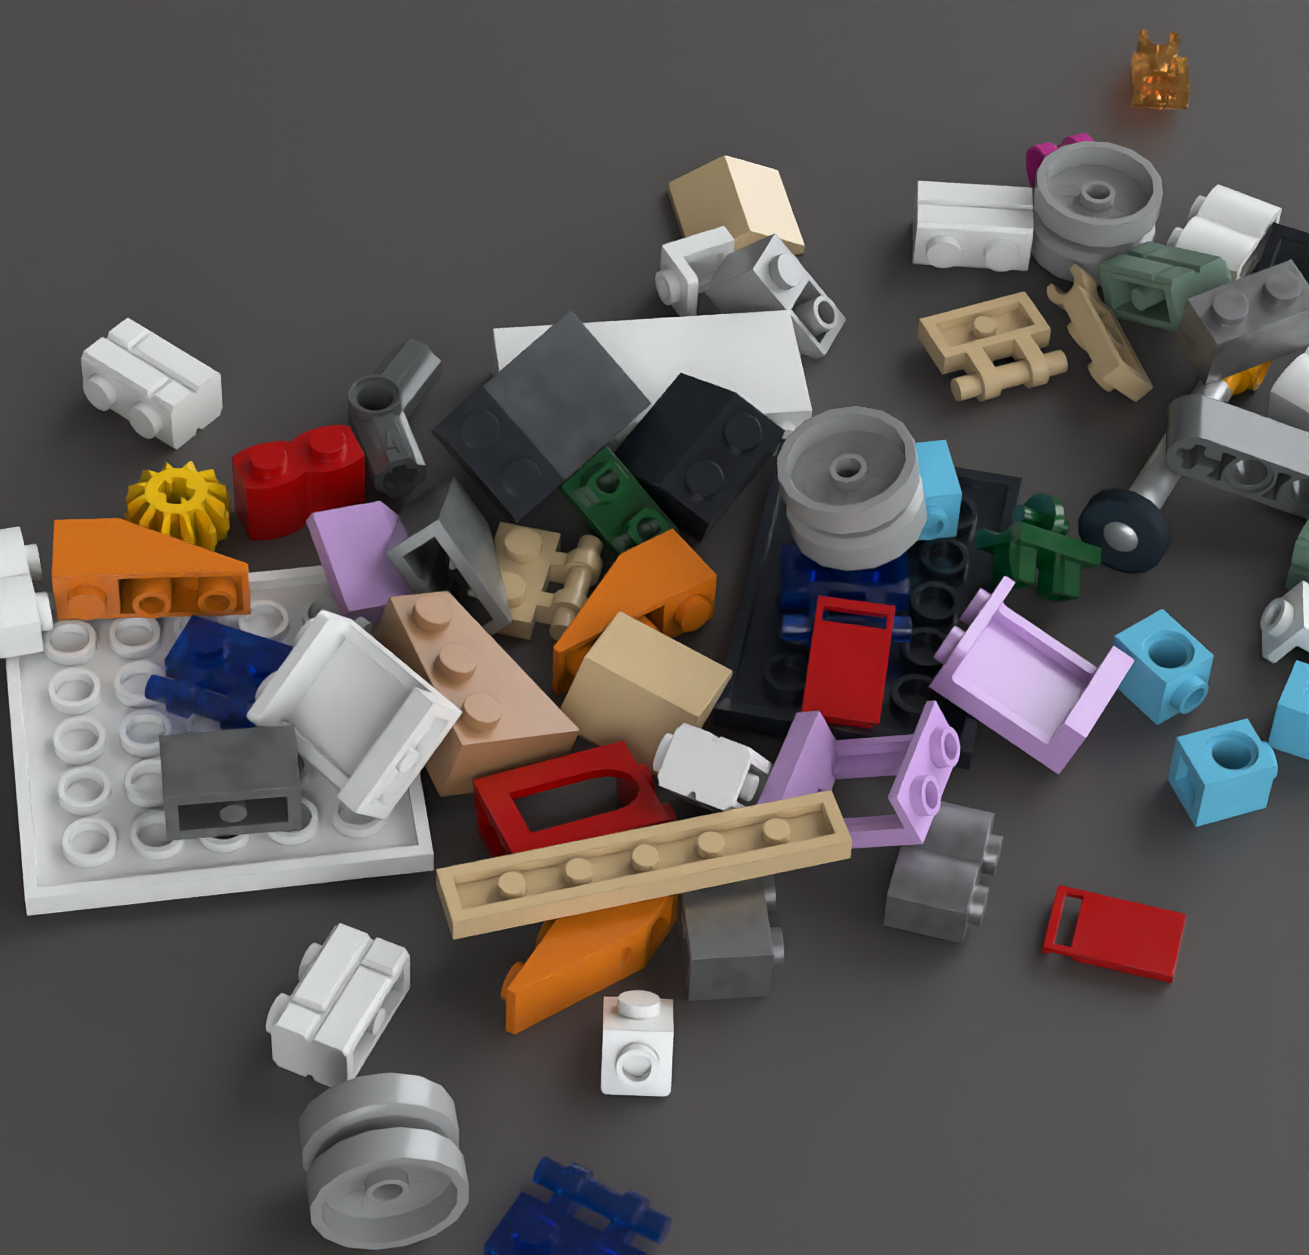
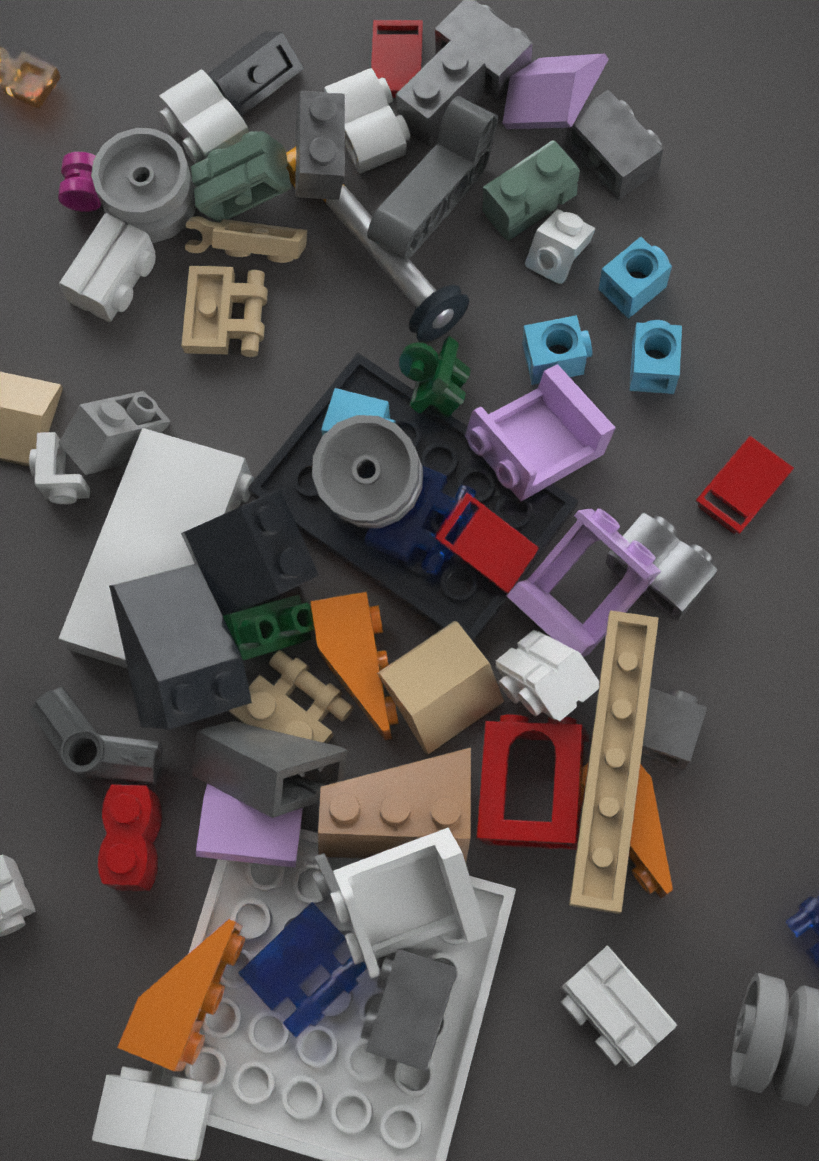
camera: 55 degrees left, 25 degrees up
(181, 504) = (113, 958): yellow gear -> none
(637, 1044) = (717, 820): white bracket -> none

